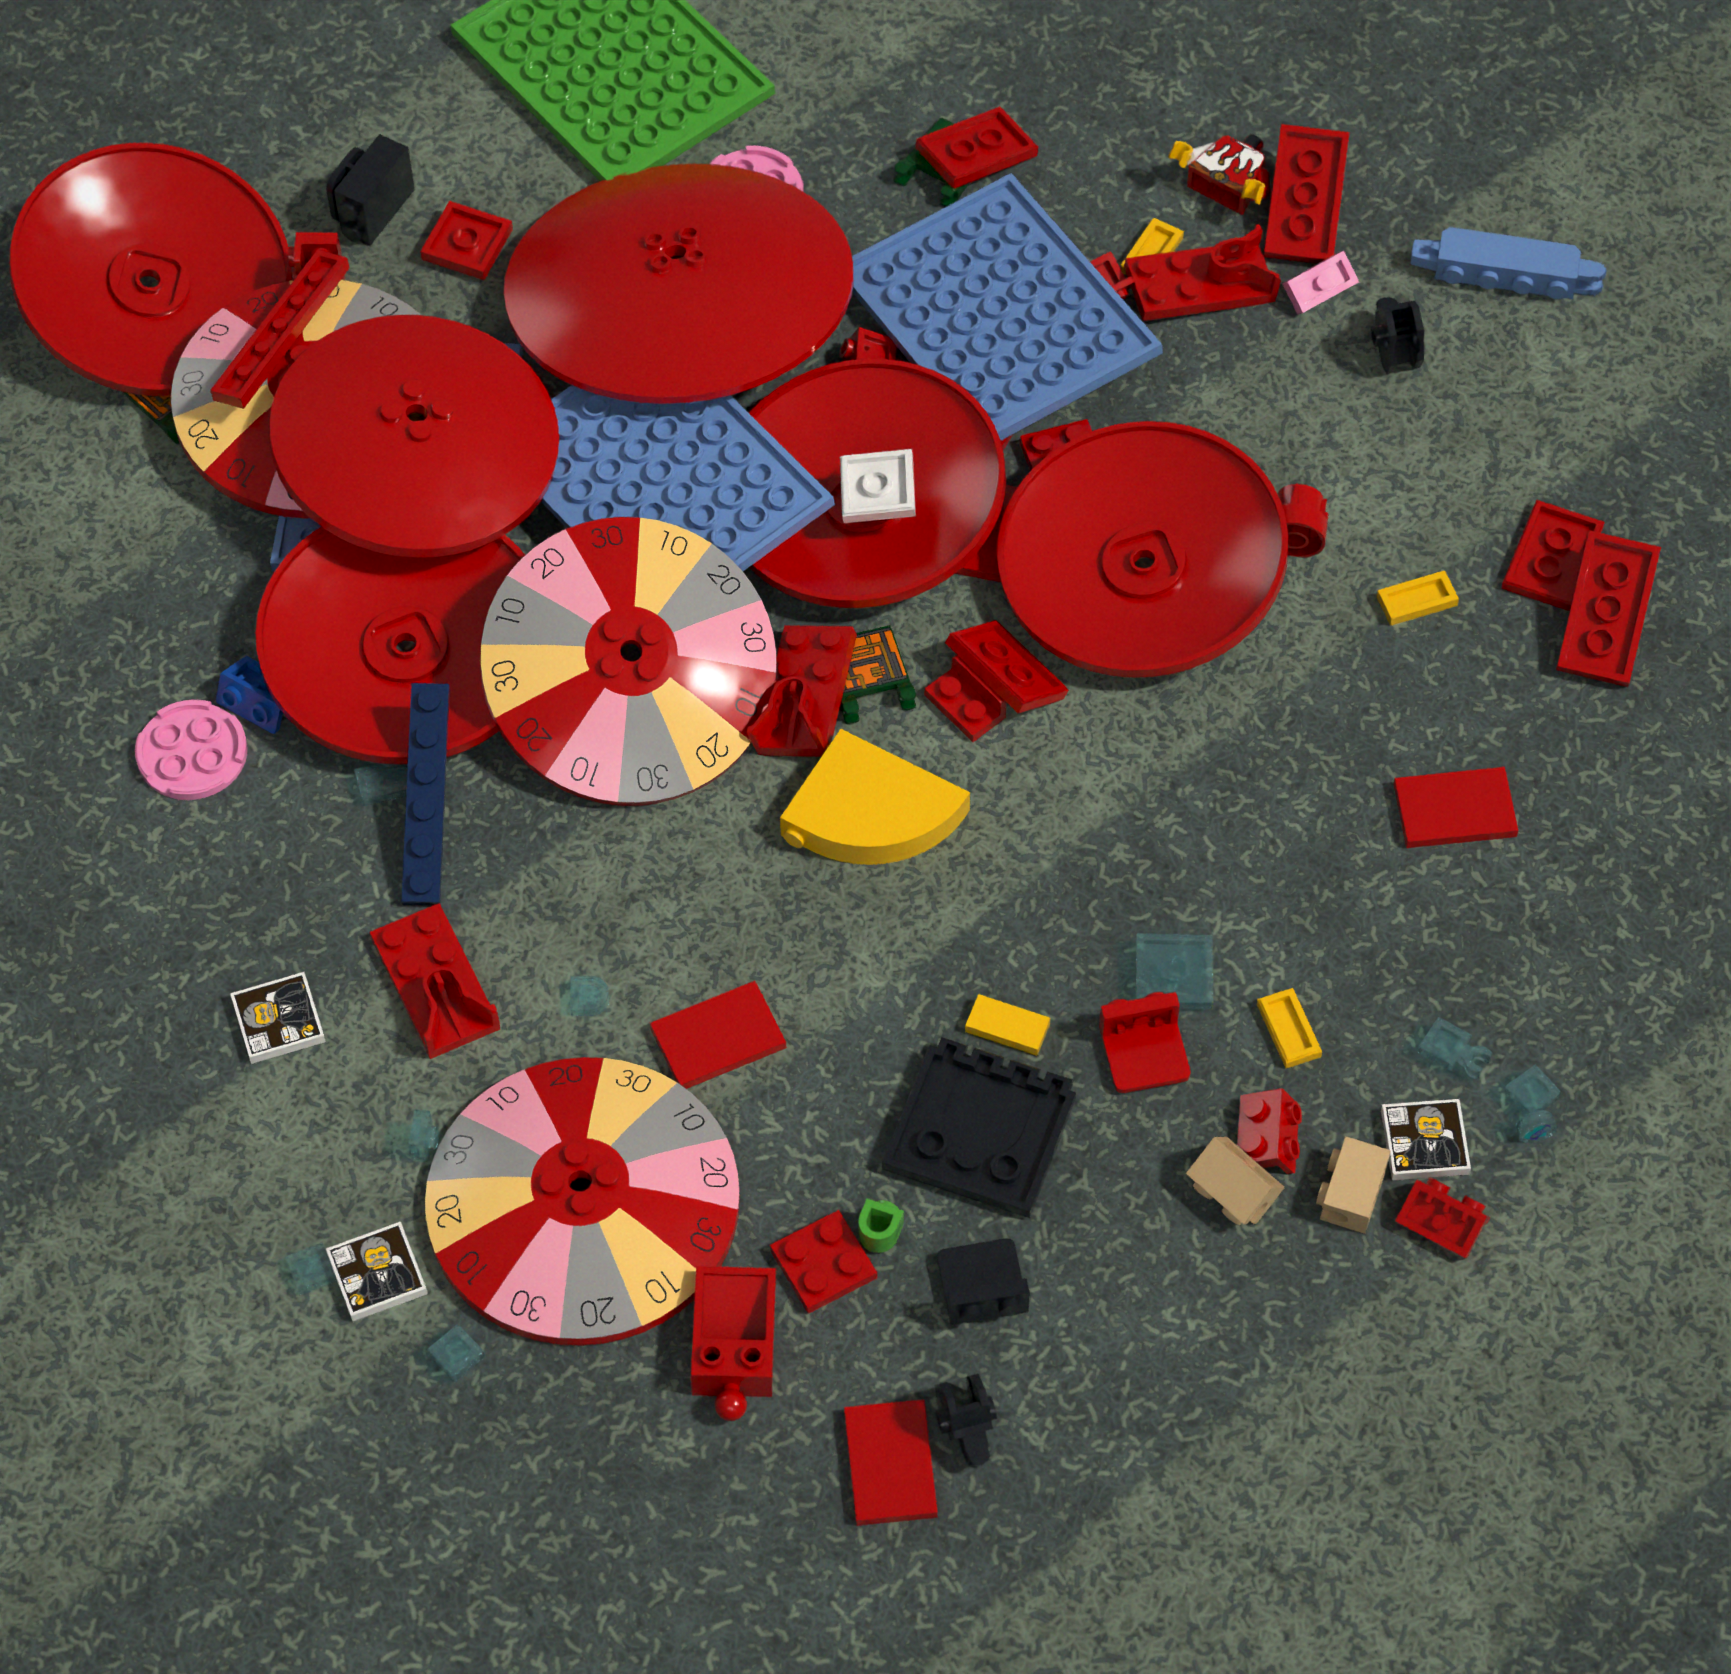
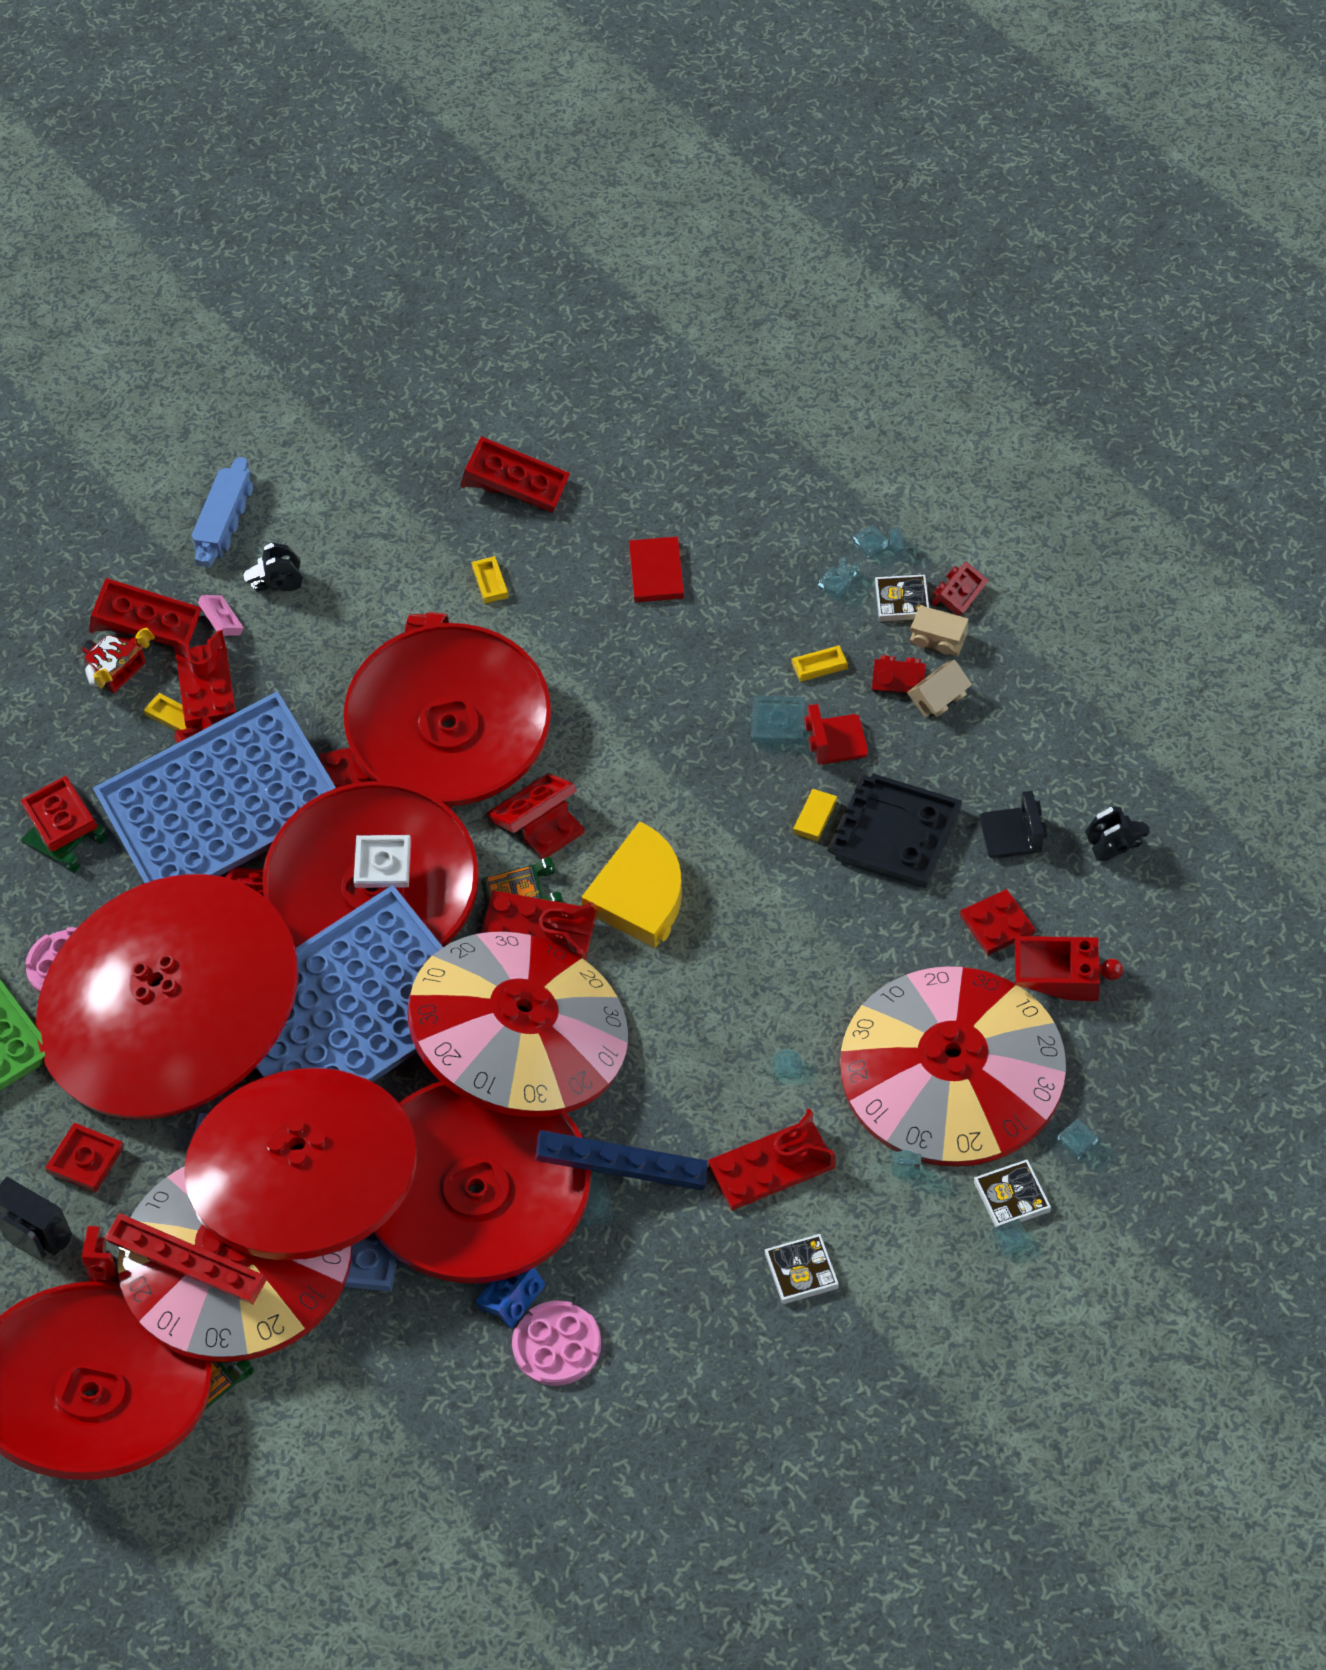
camera: 85 degrees left, 5 degrees down
(718, 1035) = (821, 984): red tile -> none
(880, 1225) = (973, 884): bright green plate -> none
(890, 1462) = (1143, 885): red tile -> none
(1550, 555) = (462, 508): red tile -> none

